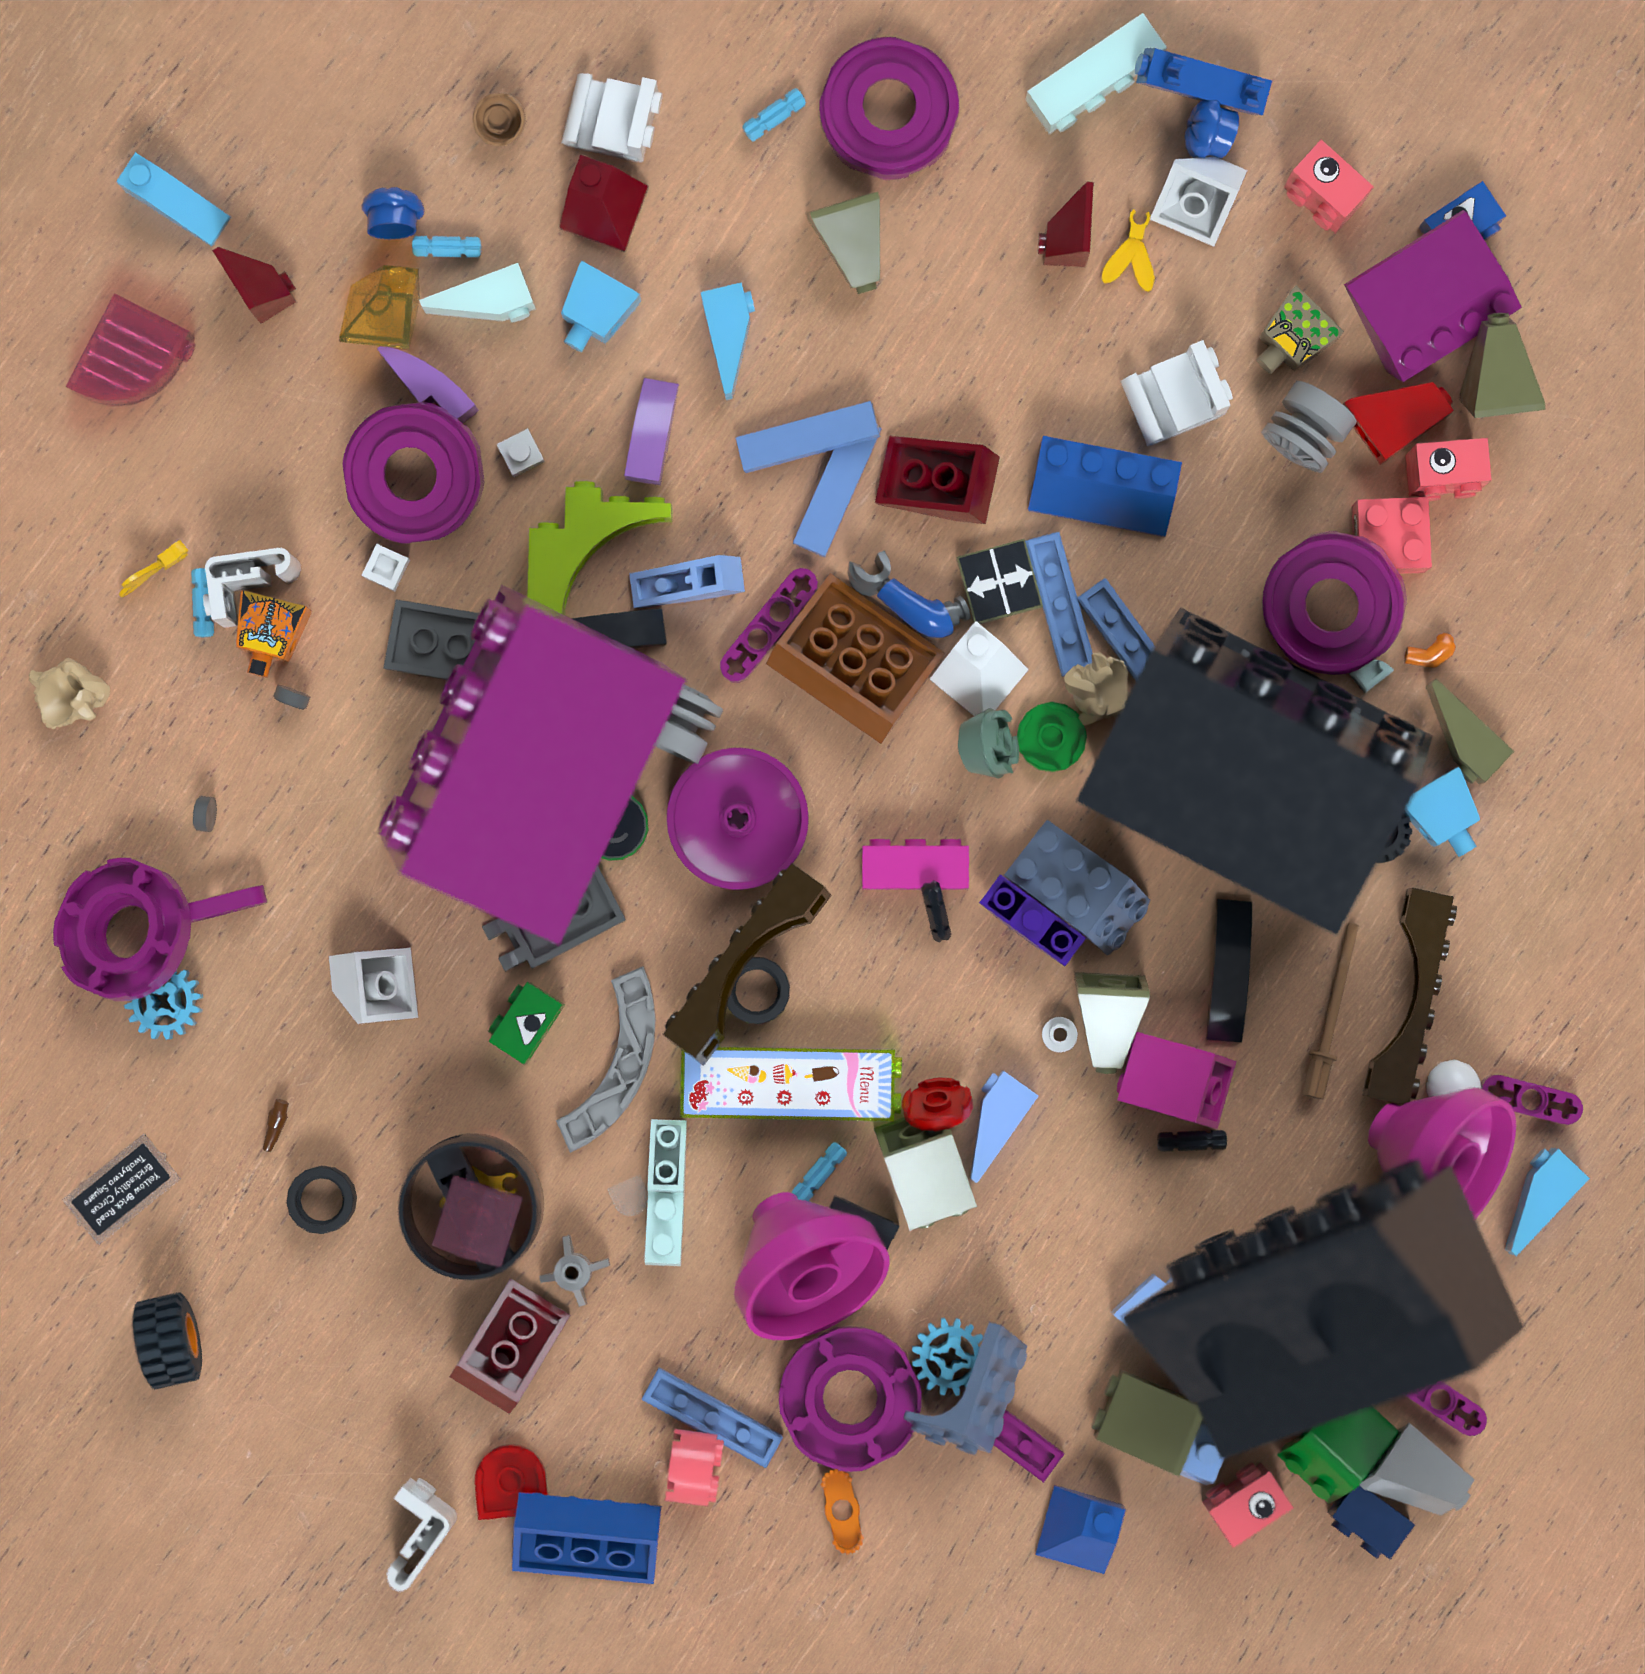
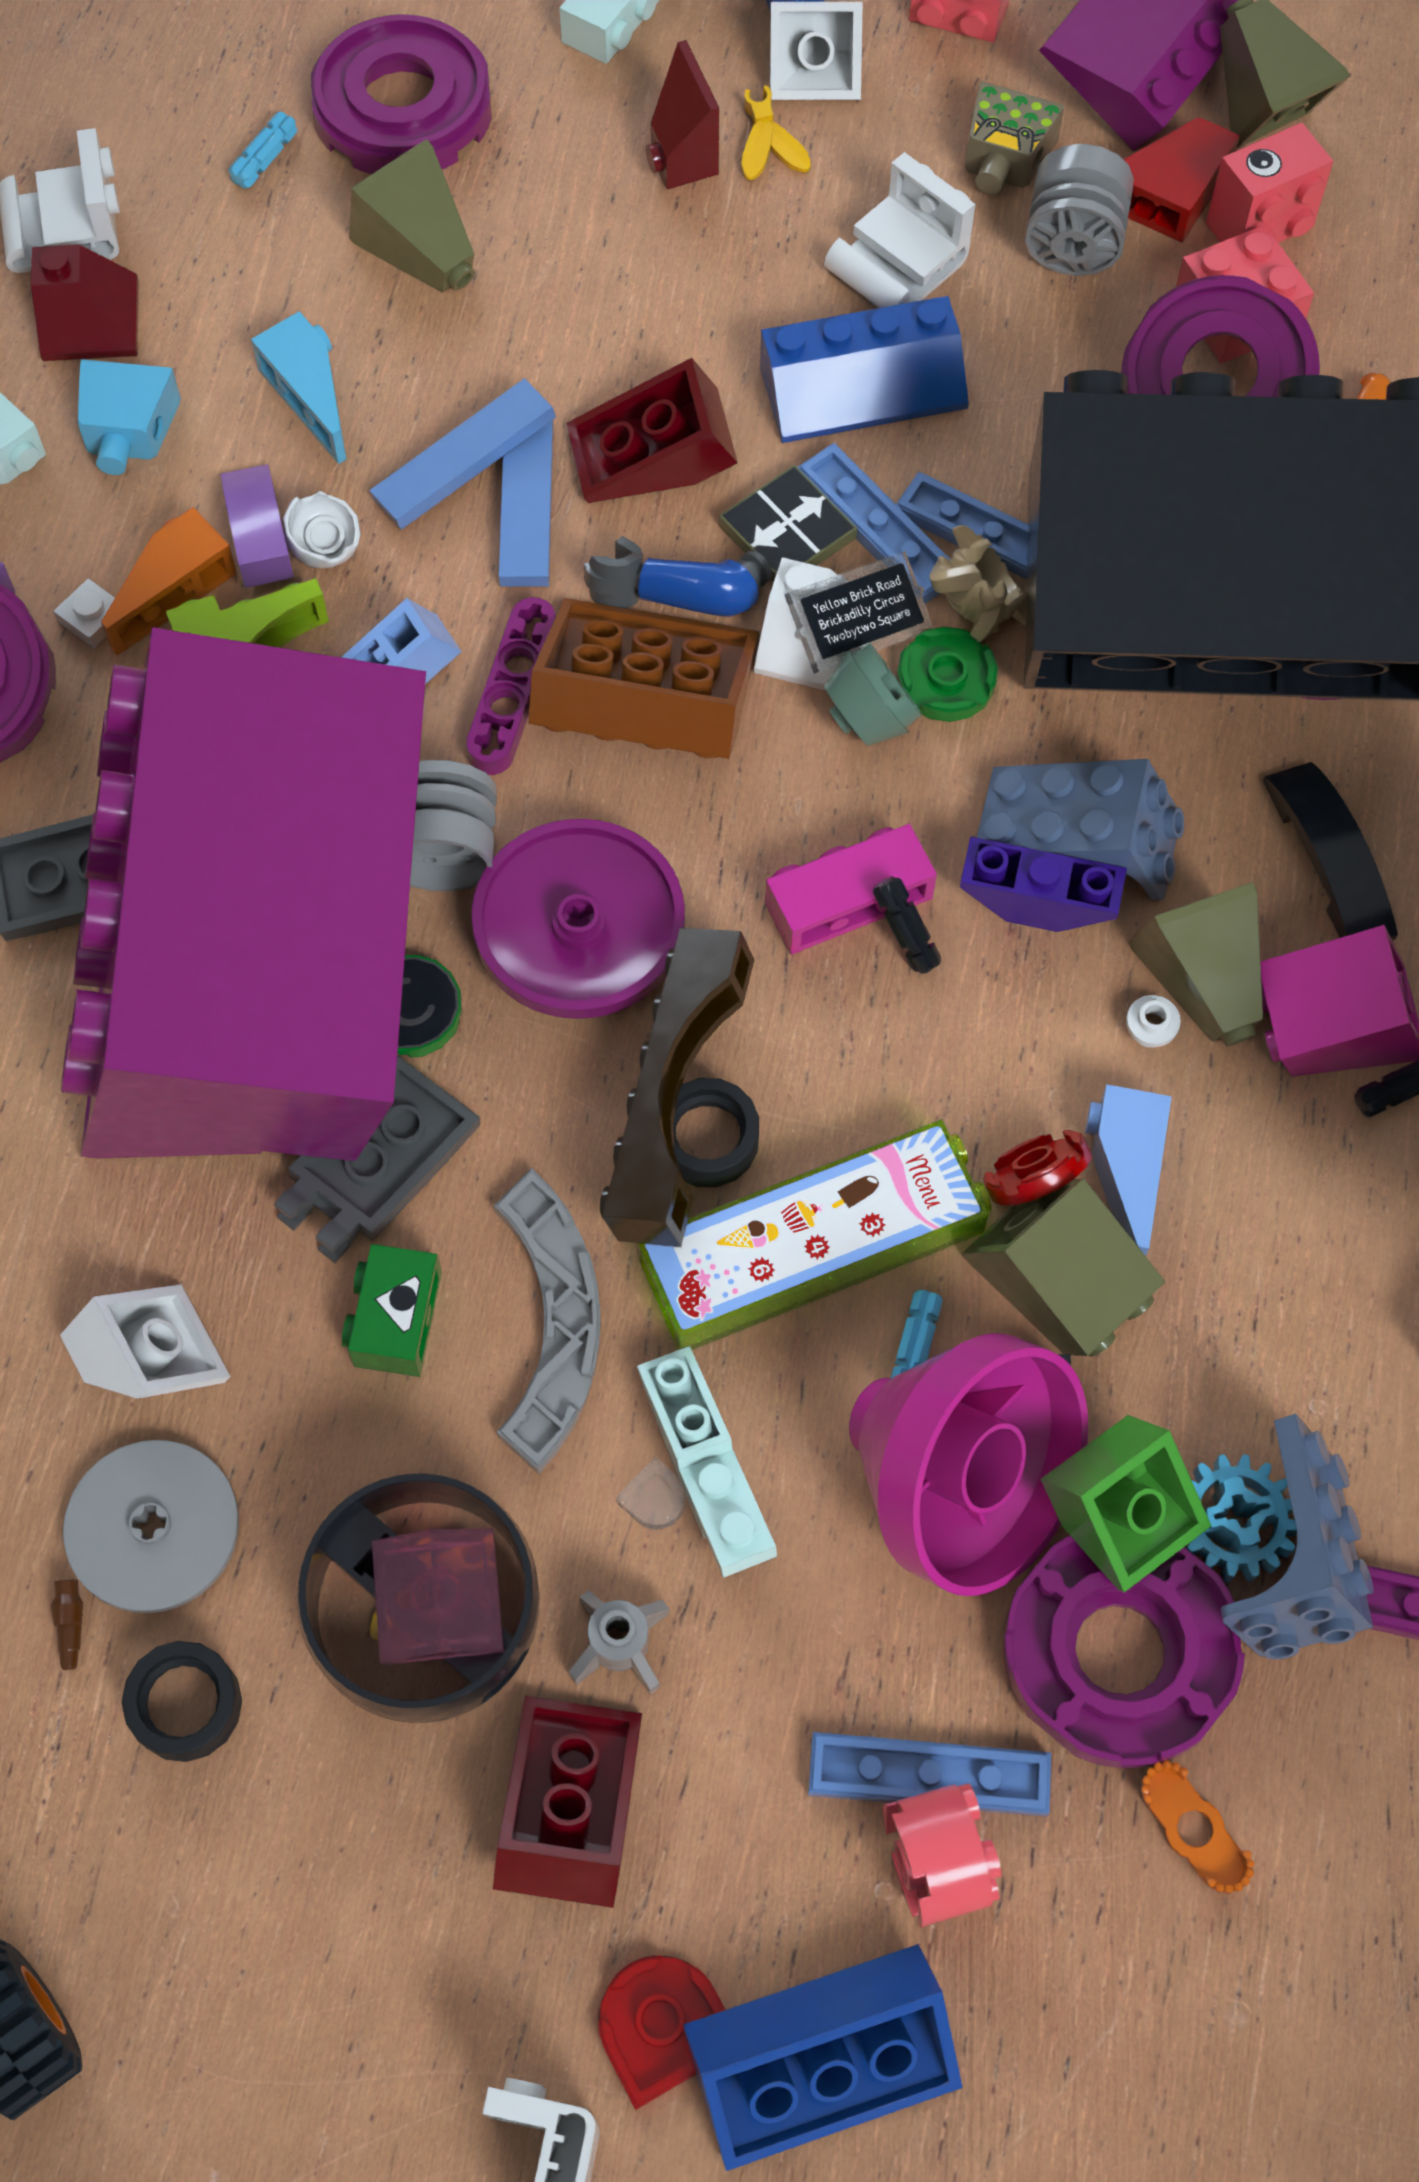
camera: 30 degrees left, 20 degrees down
(314, 1098) = (179, 1560): none -> light grey piece
(582, 449) = (176, 566): none -> orange slope
(690, 460) = (321, 530): none -> white hair
(886, 1326) = (1127, 1500): none -> bright green slope
(1009, 678) = (858, 608): none -> piece

